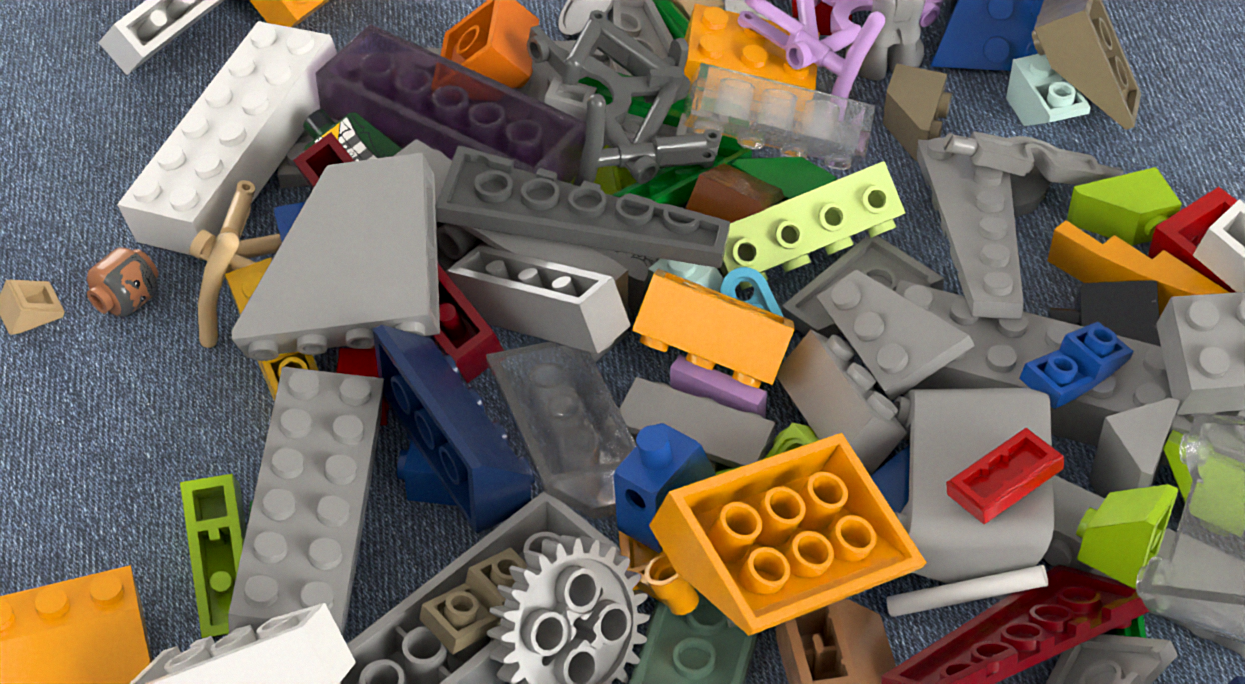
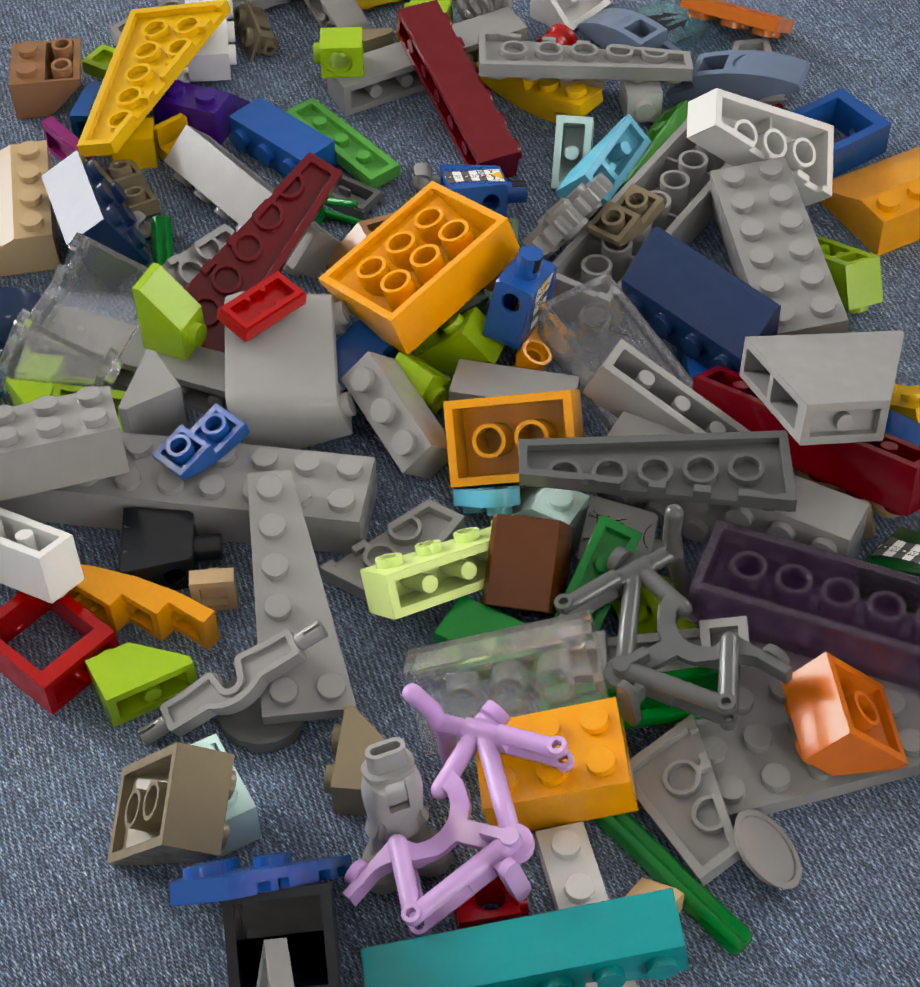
camera: 170 degrees right, 0 degrees up
(891, 333) = (367, 449): light grey wing -> none
(1055, 278) = (214, 588): none -> tan plate

